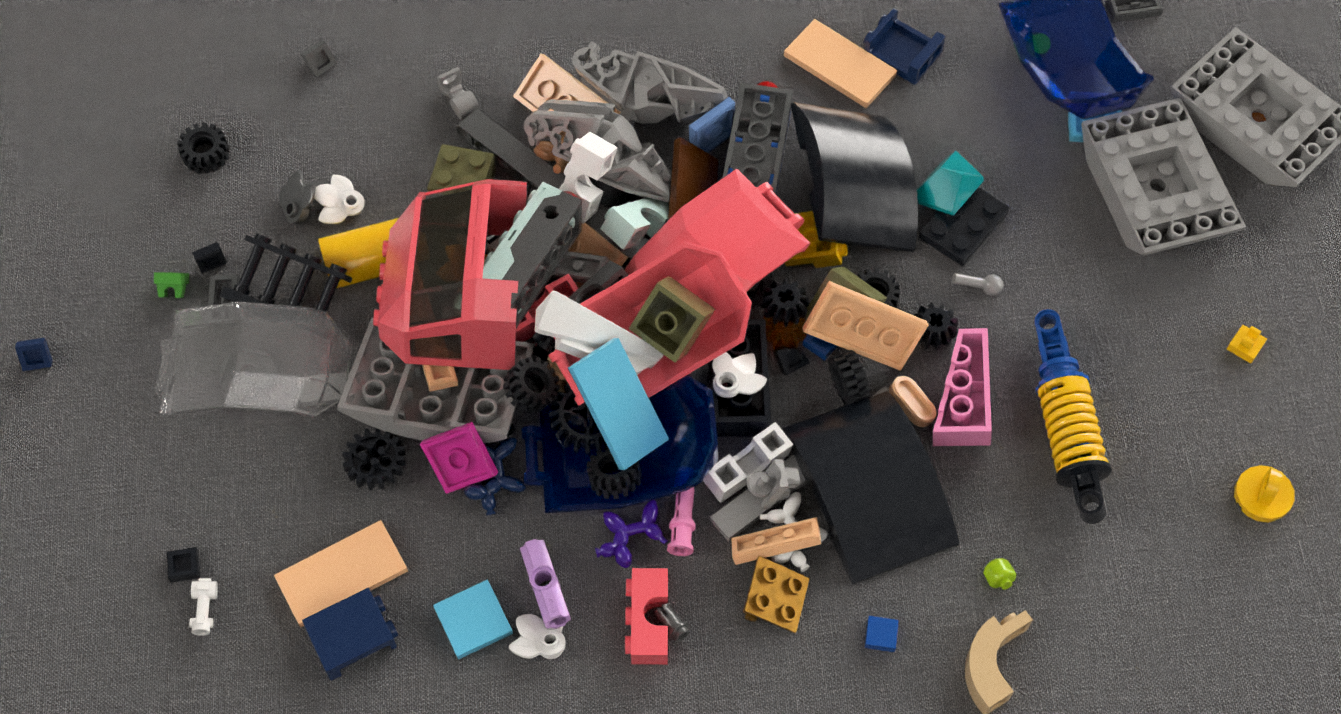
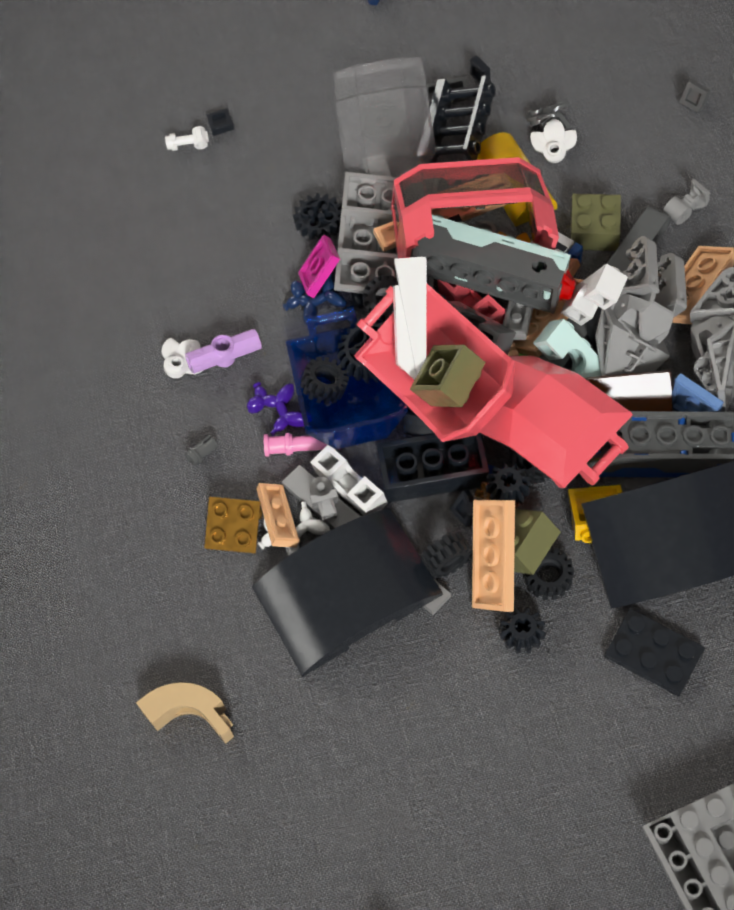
camera: 90 degrees right, 0 degrees up
(165, 280) = (453, 54): bright green tile -> none
(199, 136) = (584, 52): black tyre -> none
(341, 571) = (223, 219): light nougat tile -> none
(350, 631) = (172, 231): dark blue panel -> none
(473, 619) = (193, 311): medium azure tile -> none
(618, 403) = (365, 354): medium azure tile -> none
(647, 641) = (183, 430): coral arch -> none
(739, 373) = (425, 456): white plate -> none
(881, 633) = (207, 616): blue tile -> none
(913, 401) = (438, 619): light nougat tile -> none
(949, 185) = (686, 628): teal slope -> none
(966, 403) = (453, 663): bright pink wedge -> none
(991, 284) = (586, 684): light grey bar -> none
(999, 573) = (276, 714): lime piece -> none
(1070, 419) = (457, 755): piece -> none

